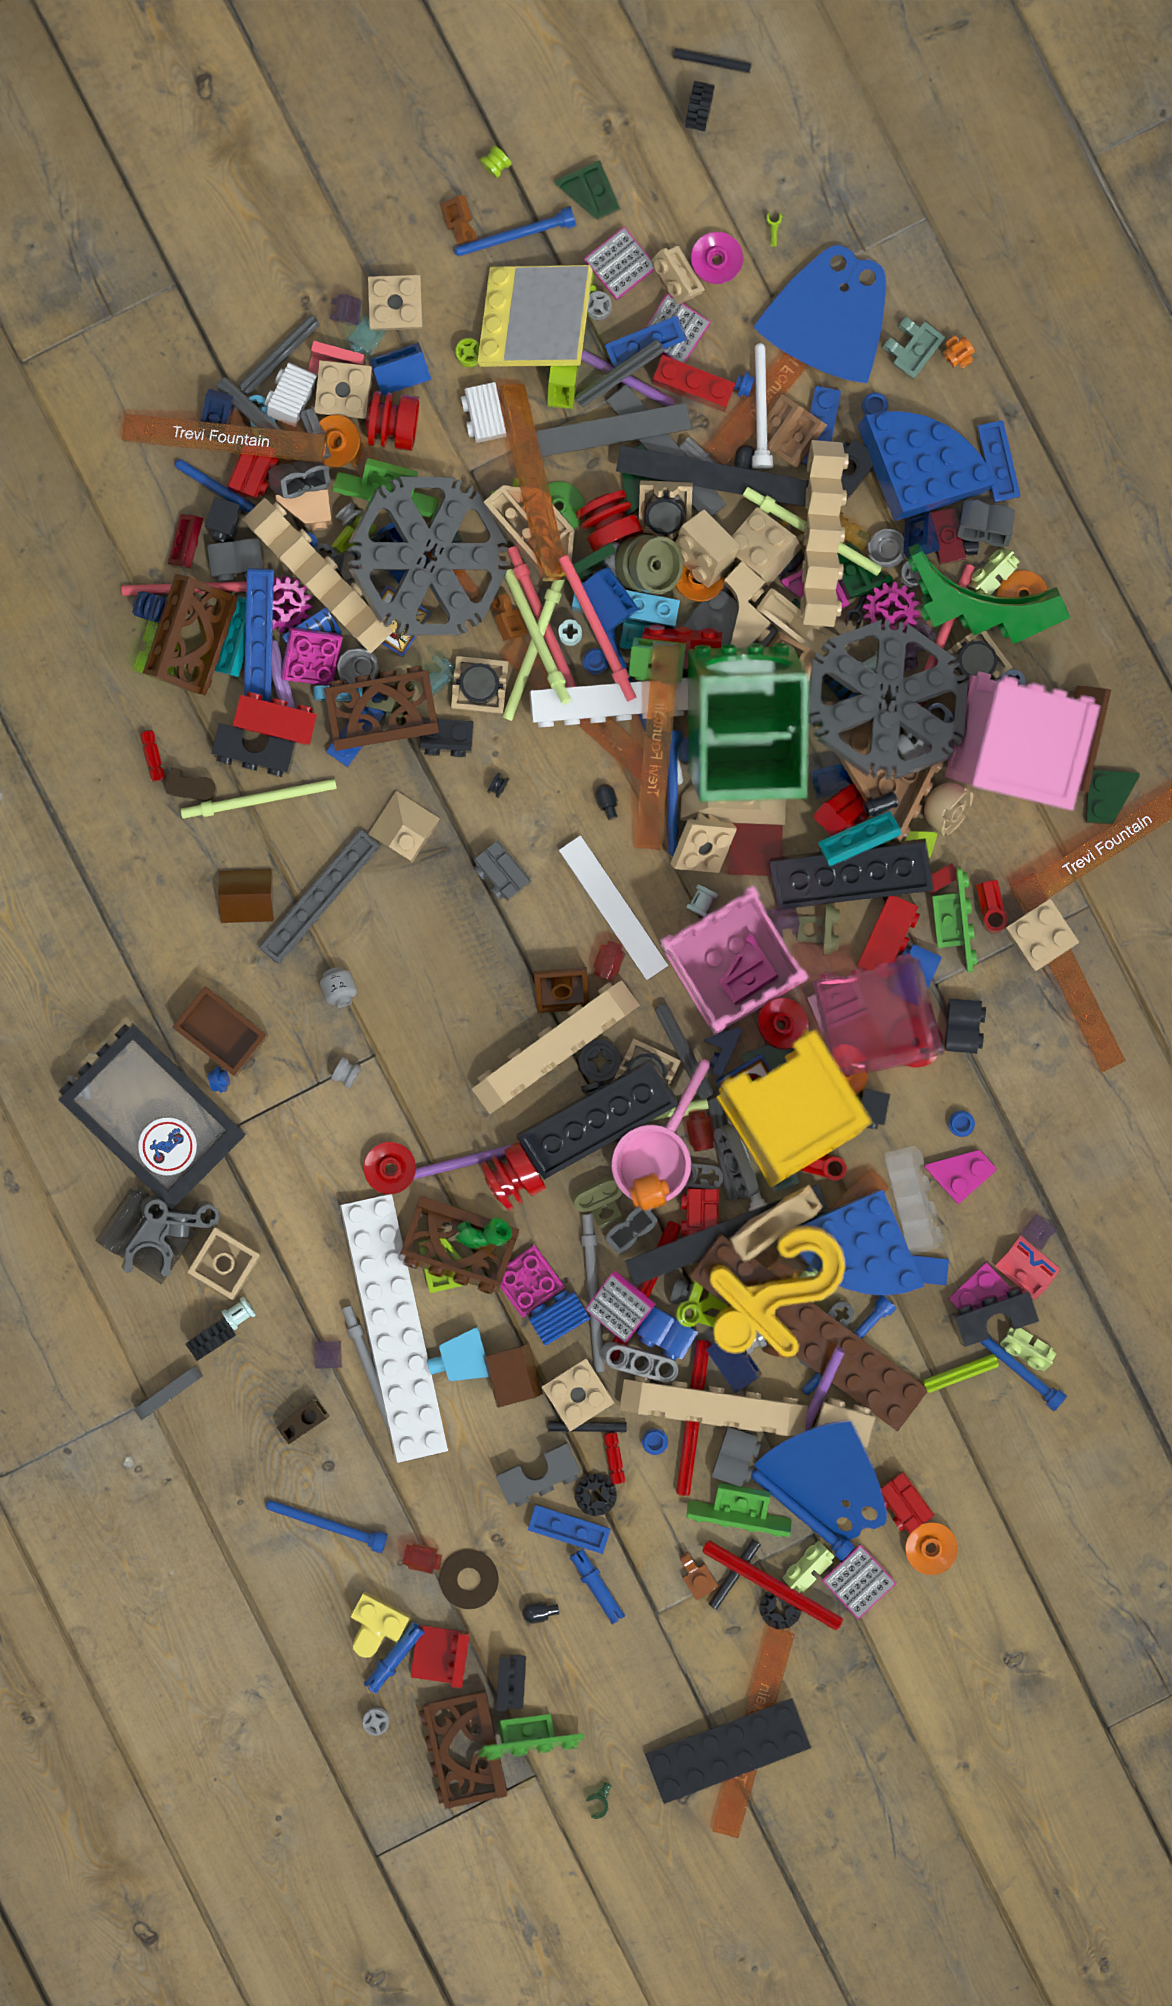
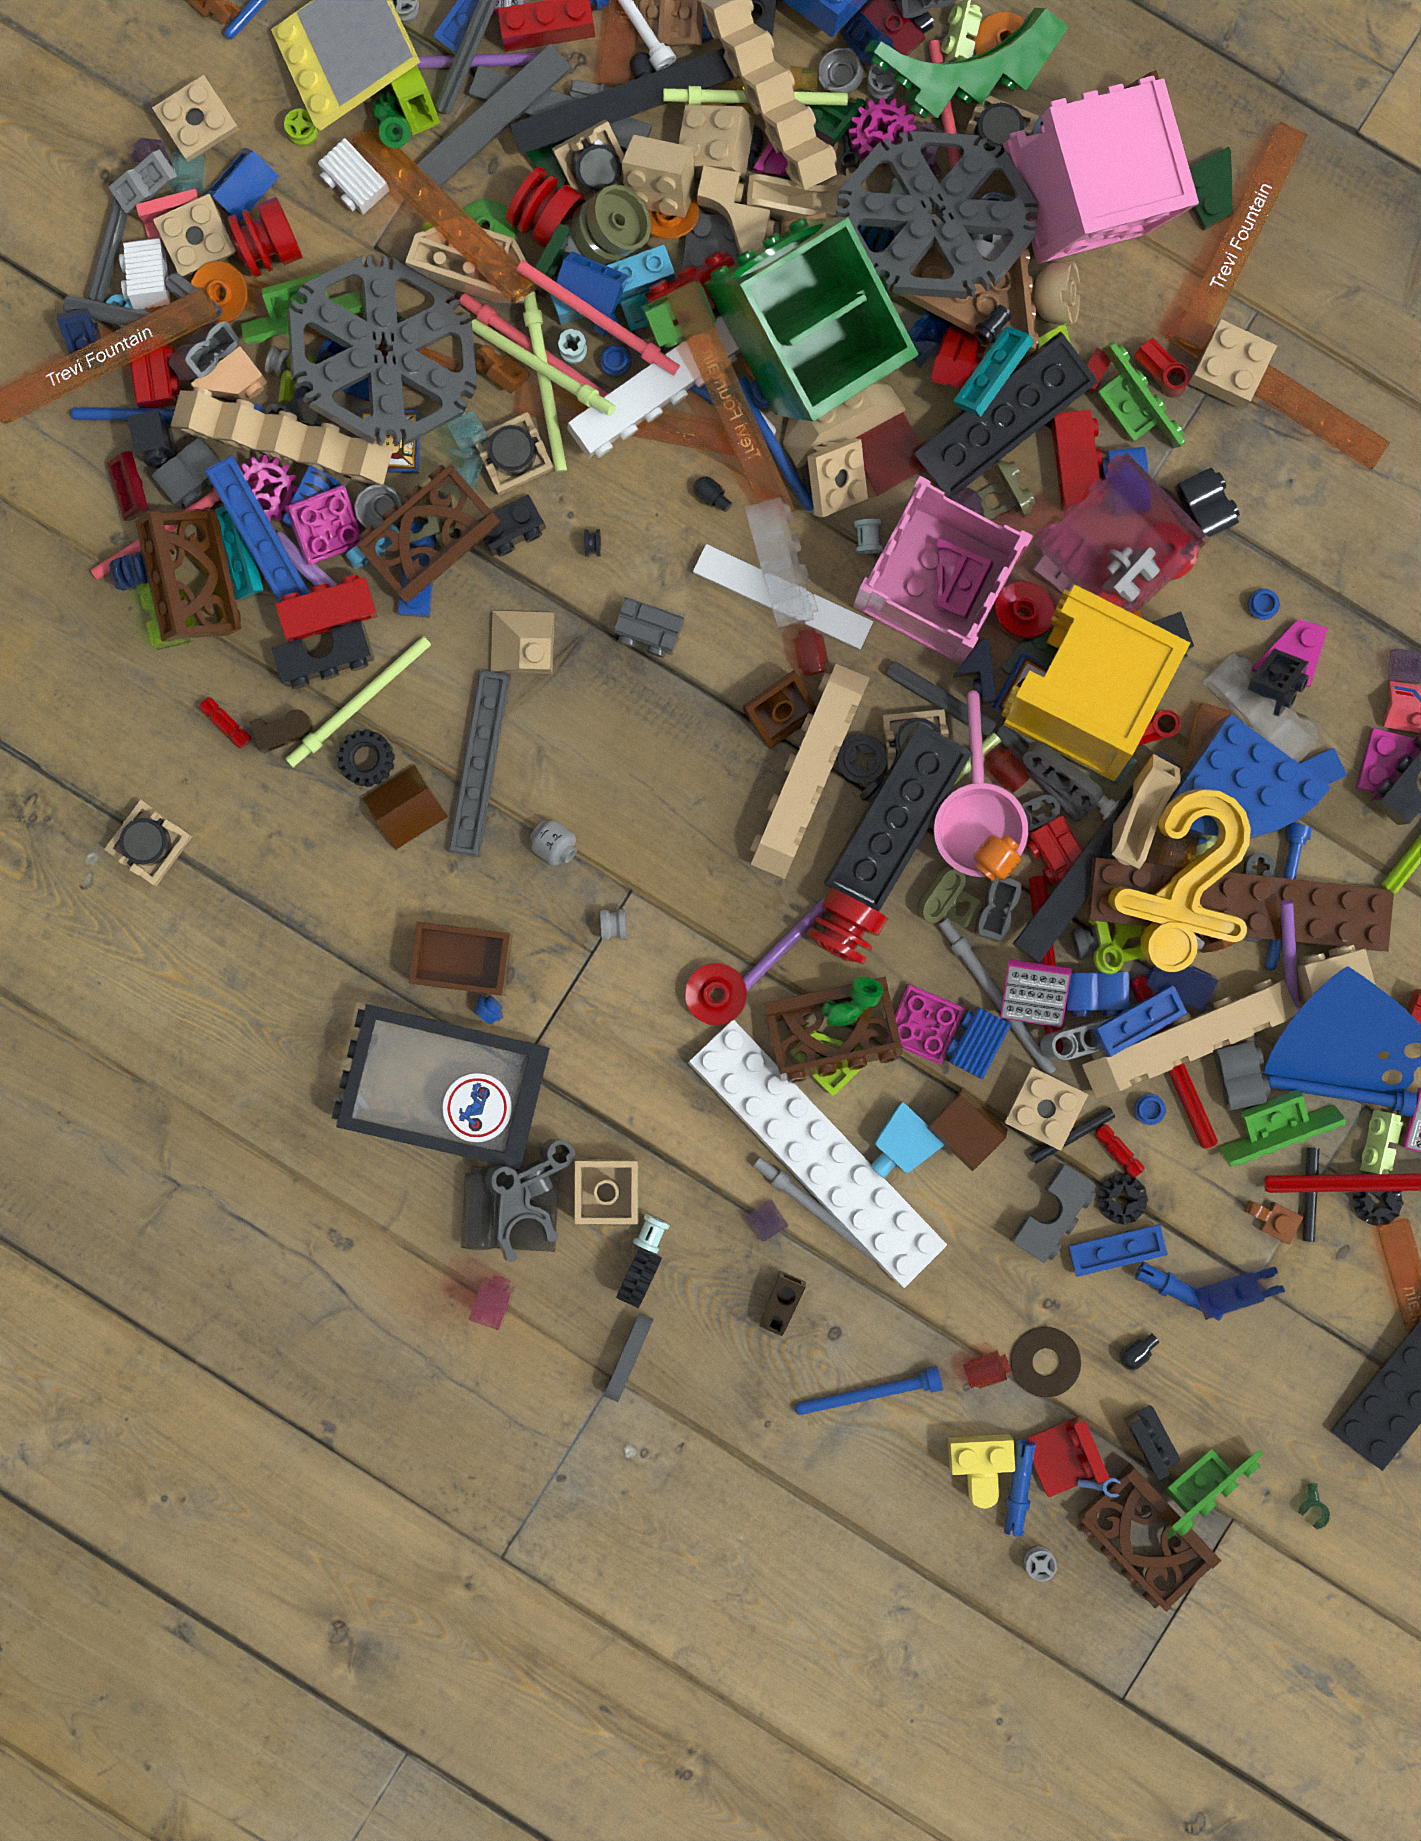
camera: 35 degrees left, 0 degrees up
(44, 810) = (148, 843): none -> piece
(94, 1293) = (492, 1302): none -> clear pink brick
(236, 827) = (349, 748): none -> black tyre
(329, 327) = (143, 181): none -> light grey slope
(452, 1690) = (1100, 1487): none -> medium blue hand
(455, 650) = (467, 430): none -> clear light blue bracket
(536, 396) = (393, 128): none -> green arm
(624, 882) = (779, 563): none -> clear brick
(635, 1612) = (1236, 1293): none -> clear blue hinge
(683, 1372) = (1139, 1021): none -> blue plate
(872, 1037) = (1125, 567): none -> light grey hips
(935, 1186) = (1280, 679): none -> black bracket

